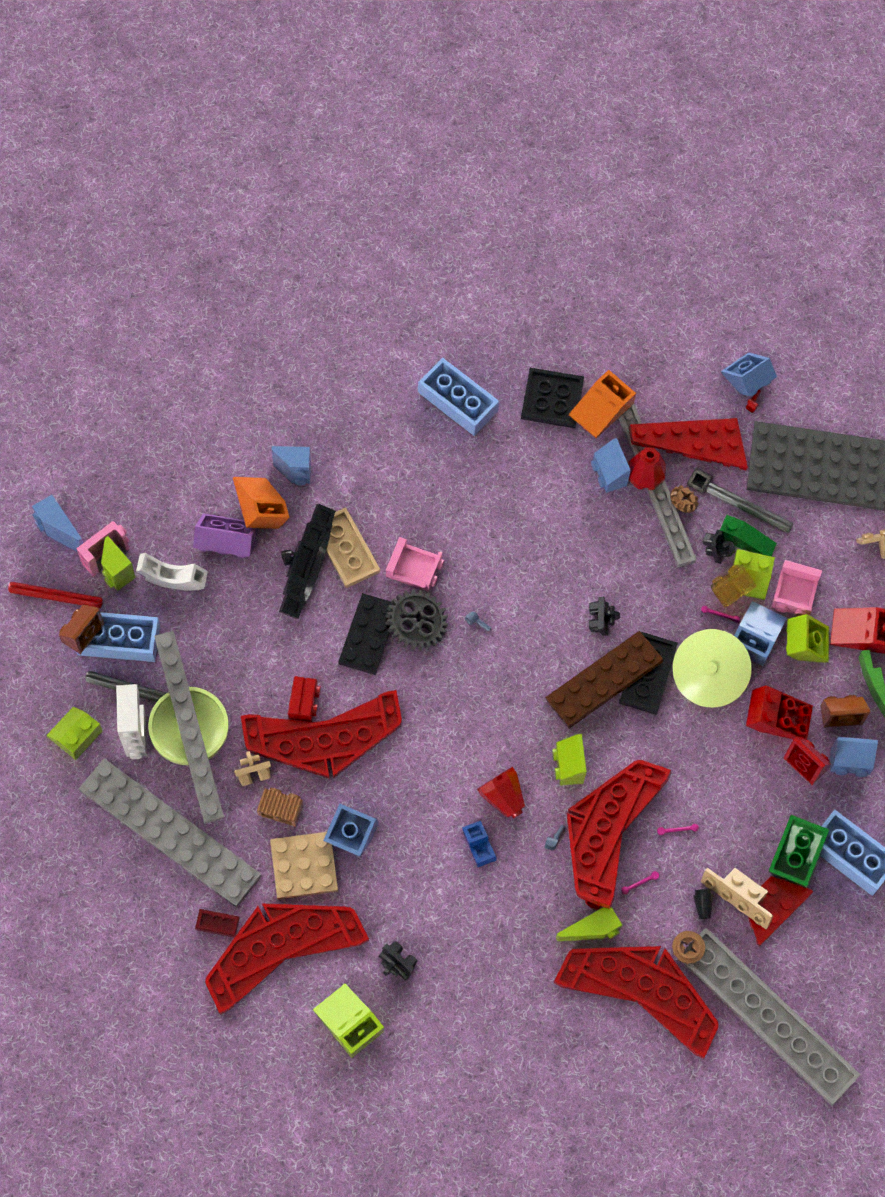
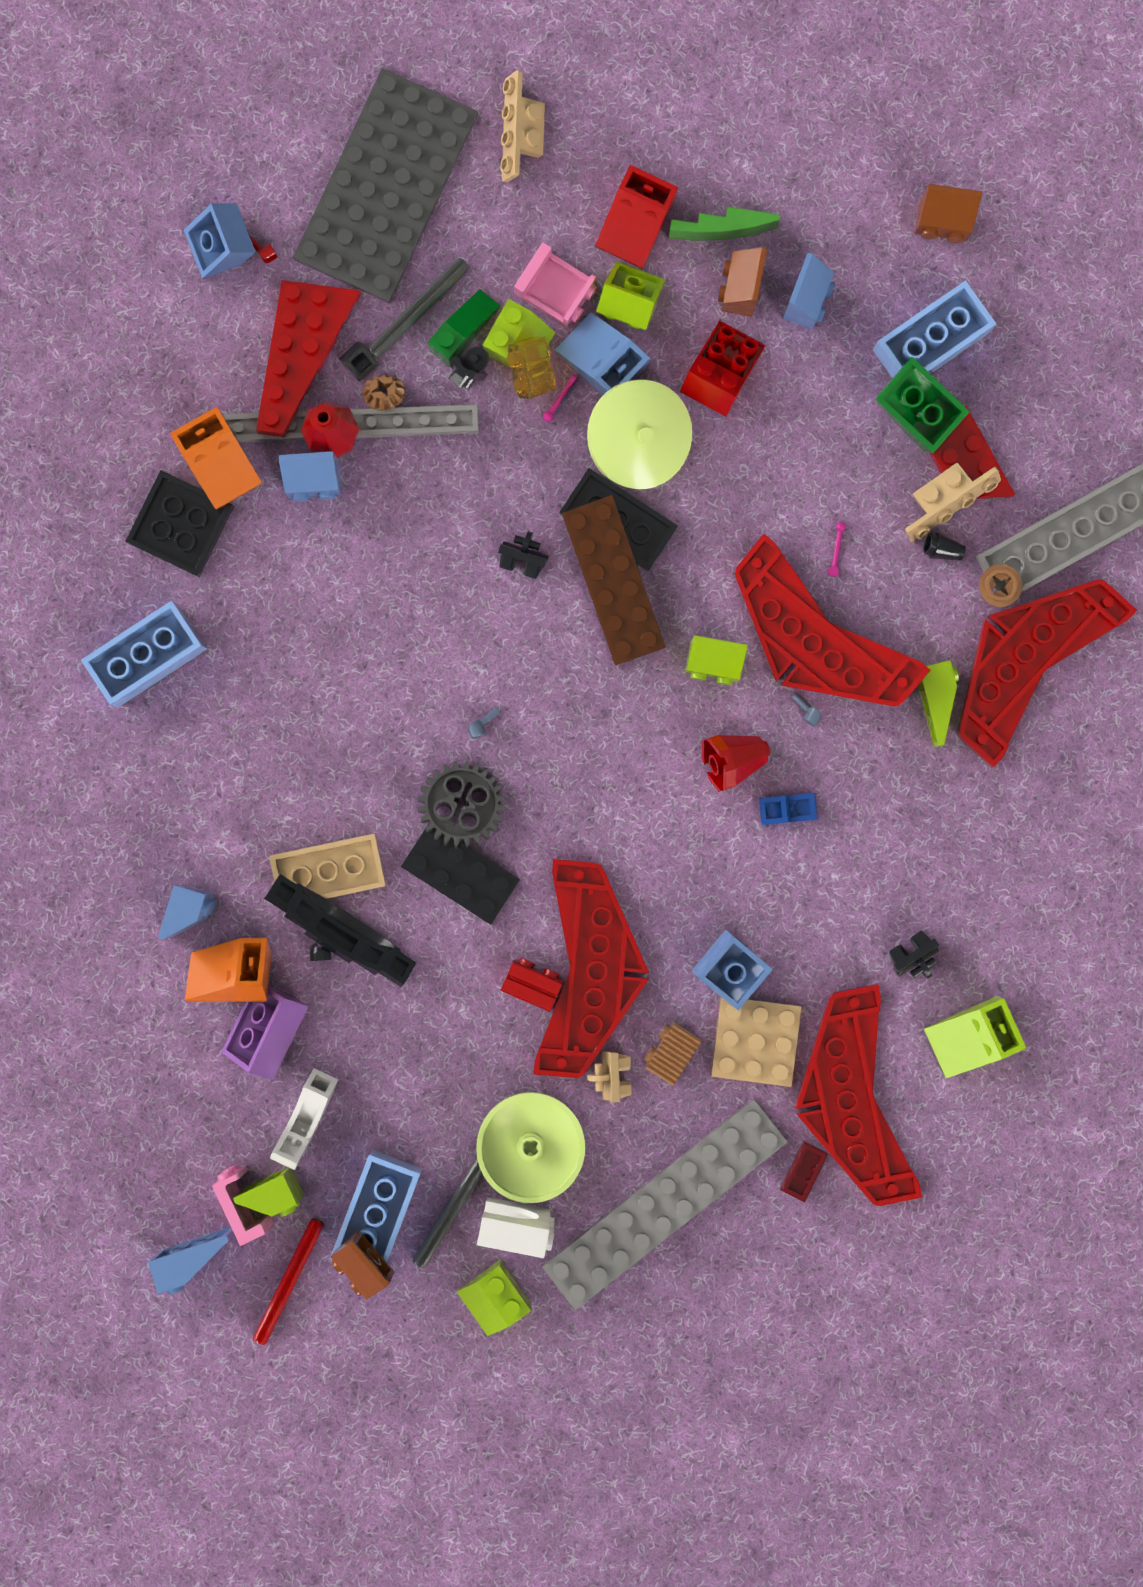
camera: 75 degrees left, 20 degrees up
(189, 727) = (534, 1148): light grey plate -> none
(414, 566) = (380, 784): bright pink panel -> none
(655, 875) = (888, 598): dark pink hinge -> none
(807, 759) = (798, 351): red slope -> none

